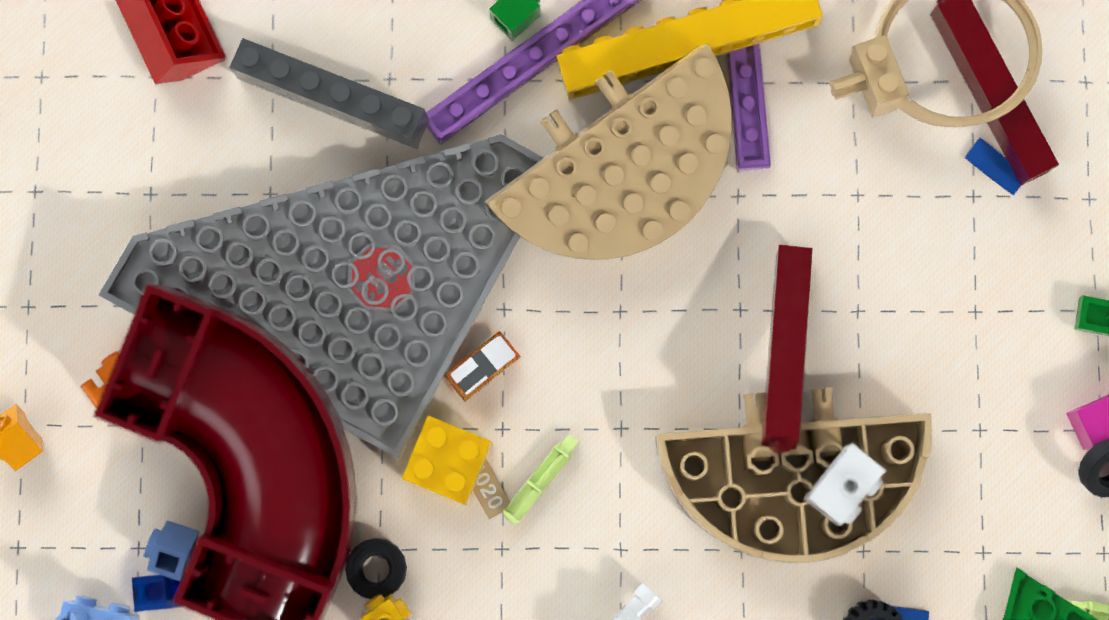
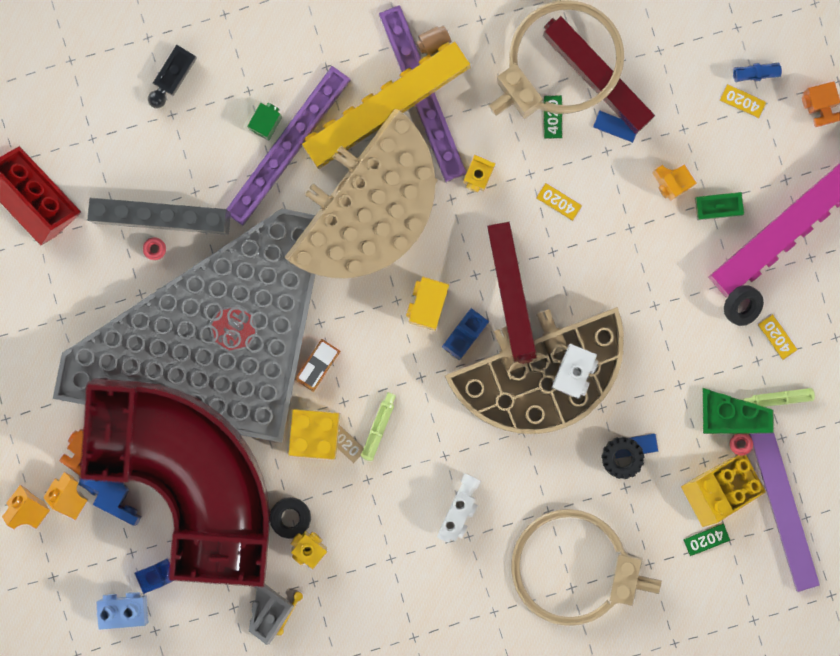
camera: 15 degrees left, 5 degrees up
(70, 440) = (64, 496): none -> light orange brick
(134, 462) = (110, 499): none -> blue plate
(171, 549) = (155, 547): medium blue brick -> none
(302, 130) = (148, 245): none -> coral plate
(664, 326) = (428, 303): none -> yellow brick
(701, 387) = (465, 334): none -> blue slope
(797, 161) = (485, 166): none -> yellow brick
(887, 244) = (559, 201): none -> yellow sticker
(911, 132) = (552, 121): none -> green sticker
(1057, 265) = (673, 181): none -> light orange brick

